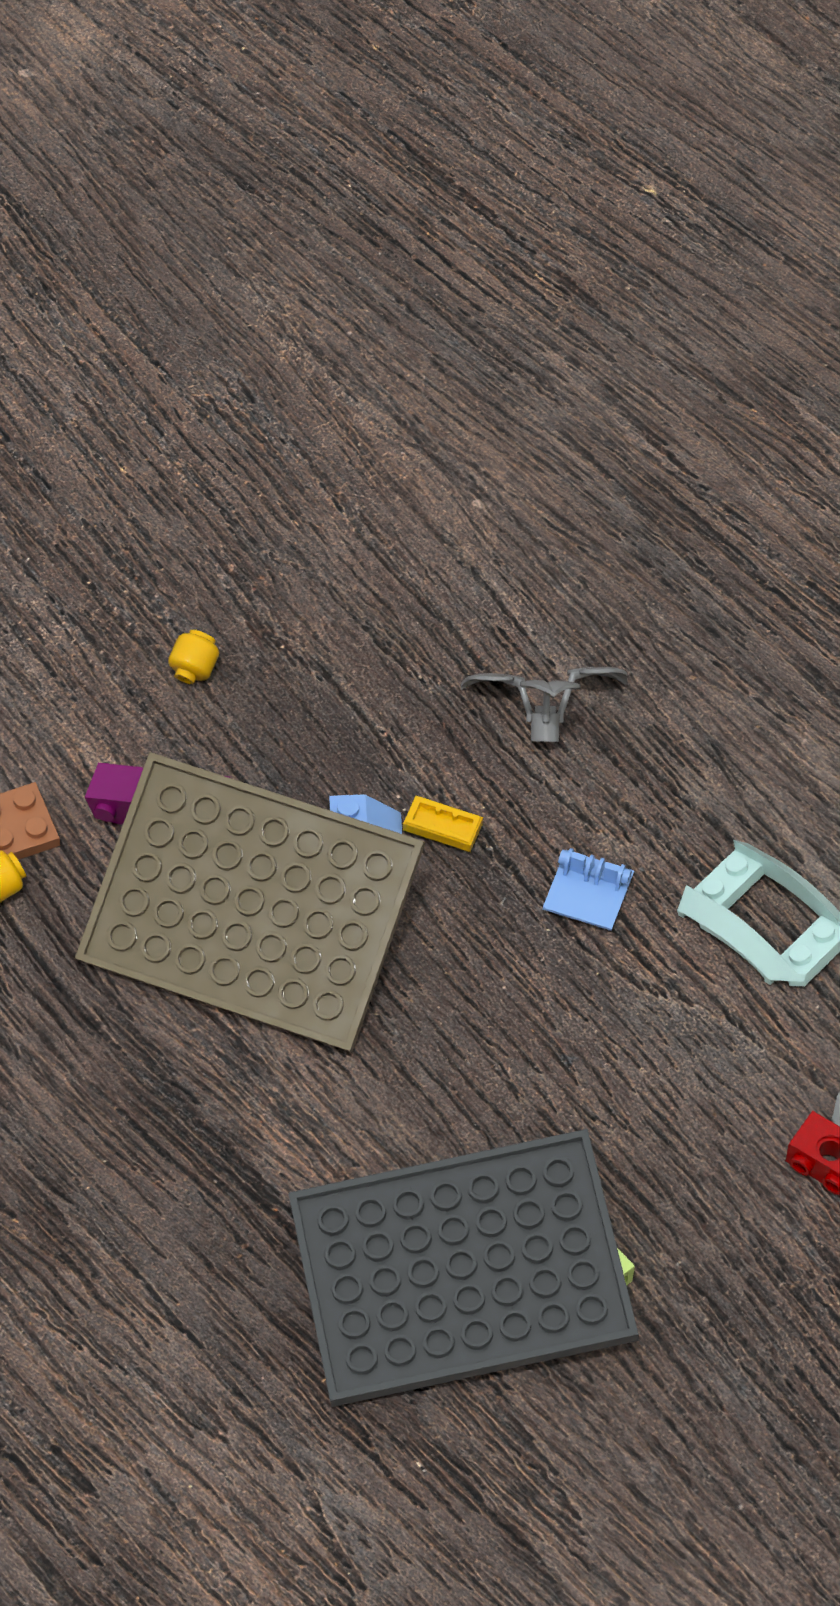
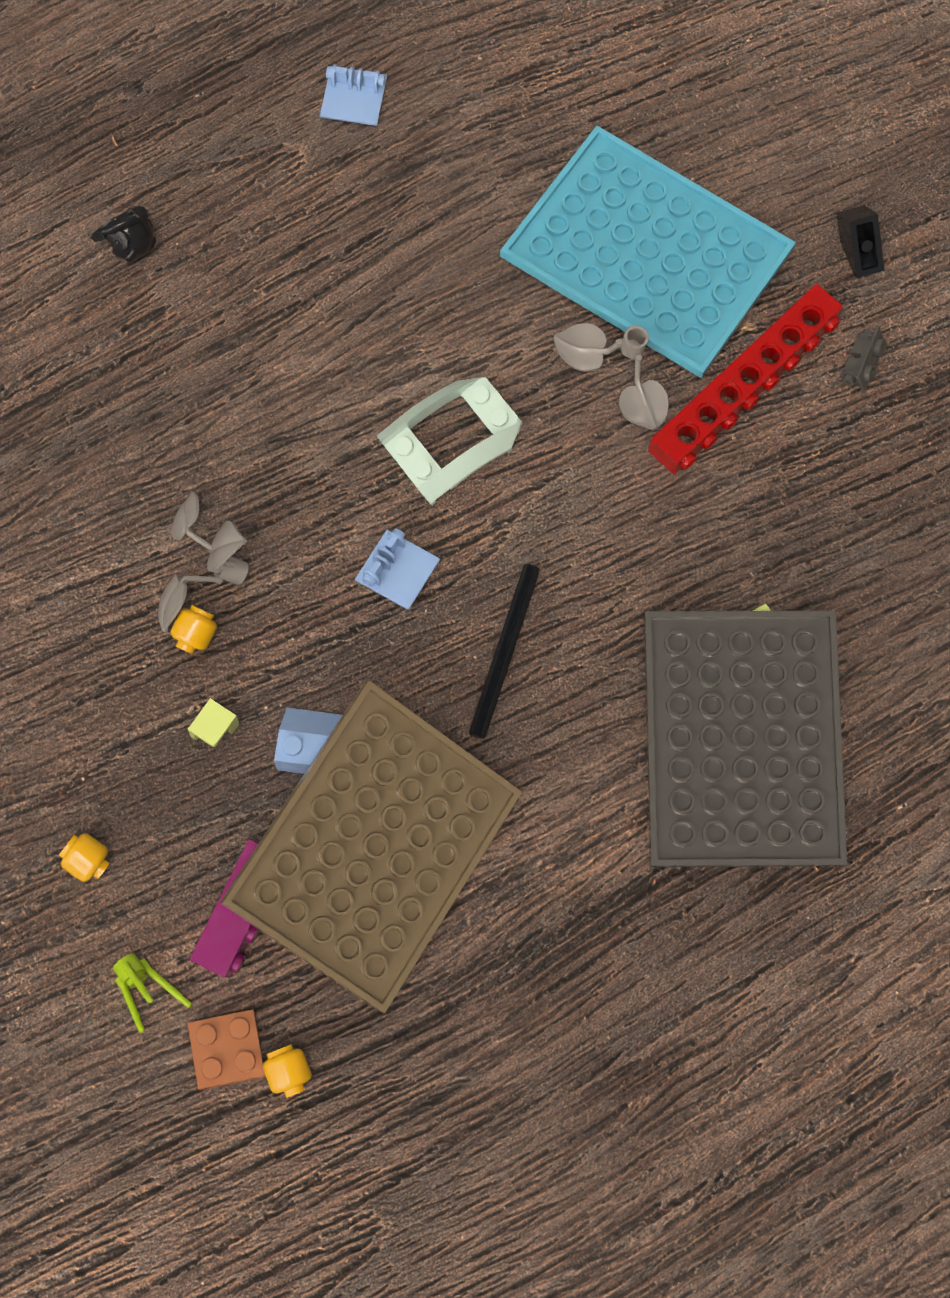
camera: 80 degrees left, 15 degrees up
(78, 723) = (132, 973): none -> lime plant
(364, 739) = (213, 723): none -> yellowish green panel
(442, 823) = (308, 673): yellow plate -> none
(467, 706) = (193, 629): none -> yellow head
(516, 1011) = (504, 651): none -> black axle

